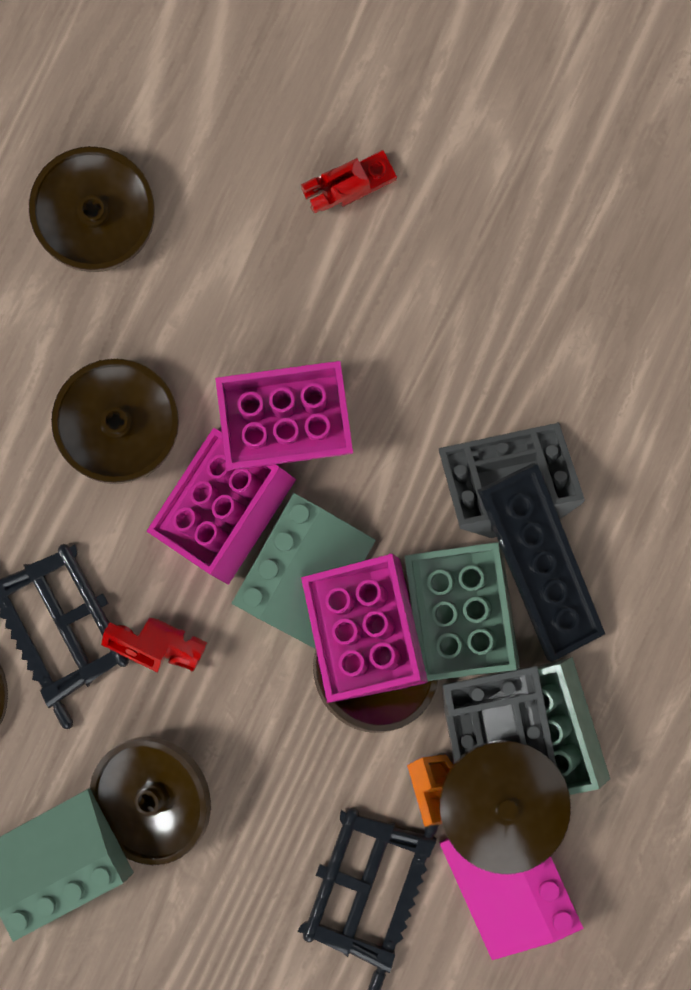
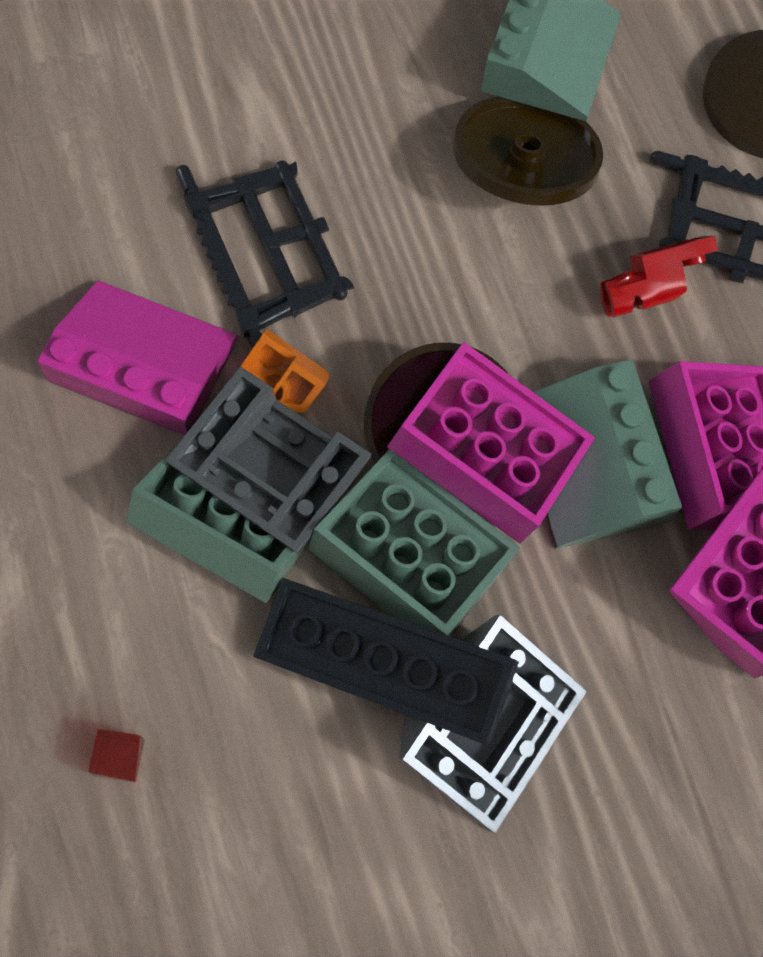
camera: 130 degrees right, 15 degrees down
(505, 807) = (210, 398): dark brown dish -> none

